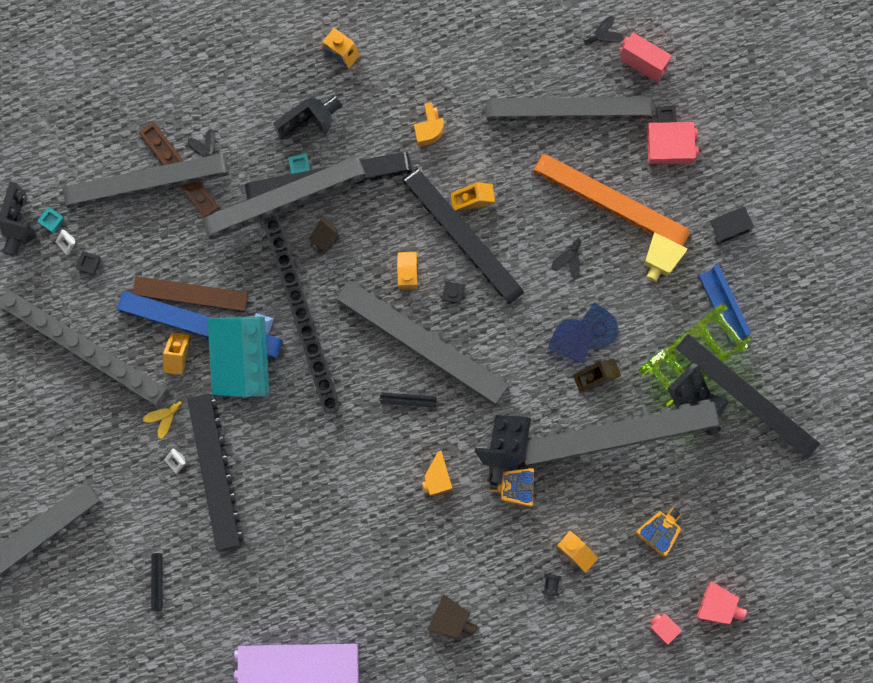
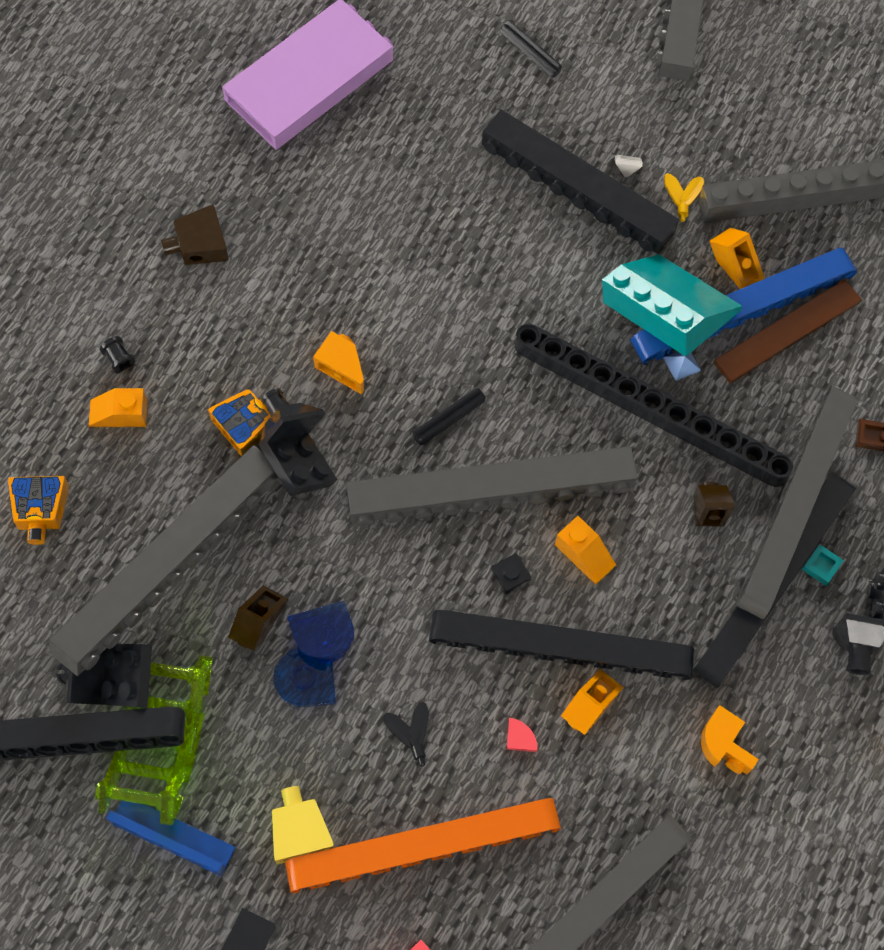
camera: 130 degrees right, 10 degrees down
(521, 212) = (520, 737): none -> coral tile

